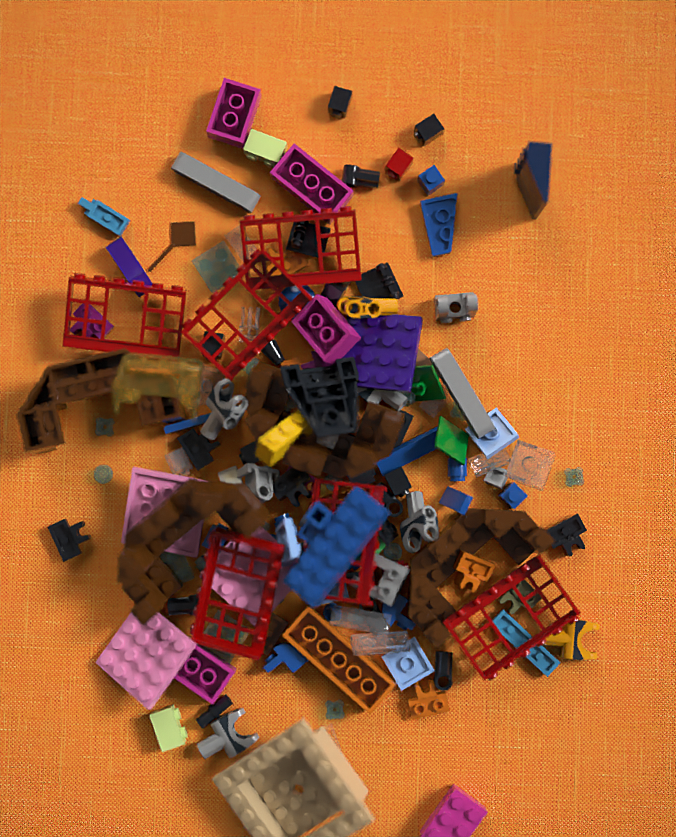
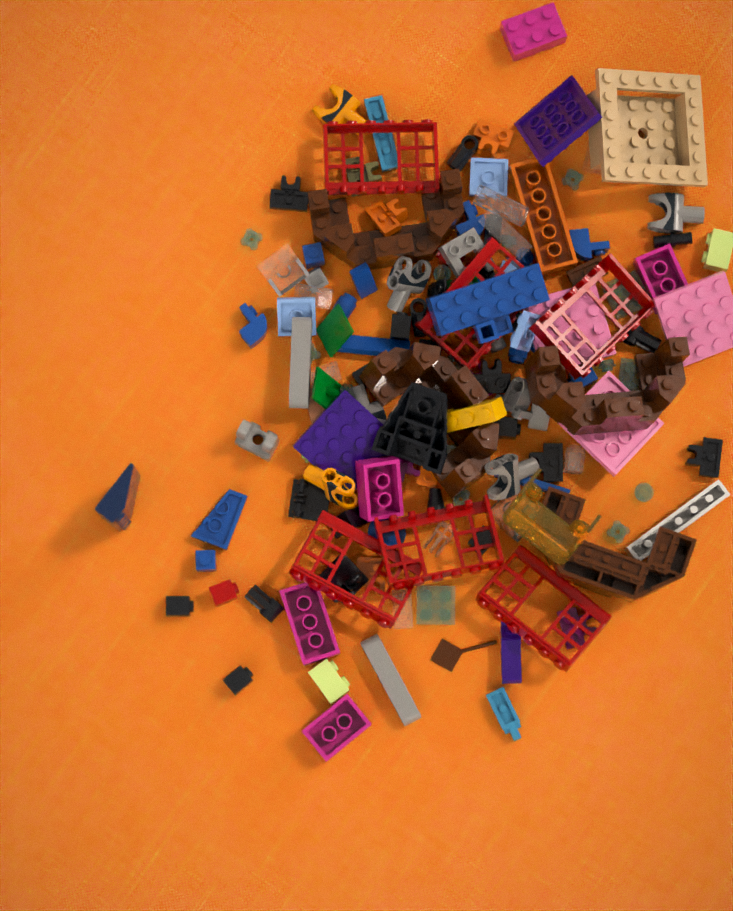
camera: 150 degrees left, 5 degrees down
(58, 466) = (680, 518): none -> white brick
(378, 751) = (557, 120): none -> dark purple plate
(518, 401) = (256, 329): none -> blue brick

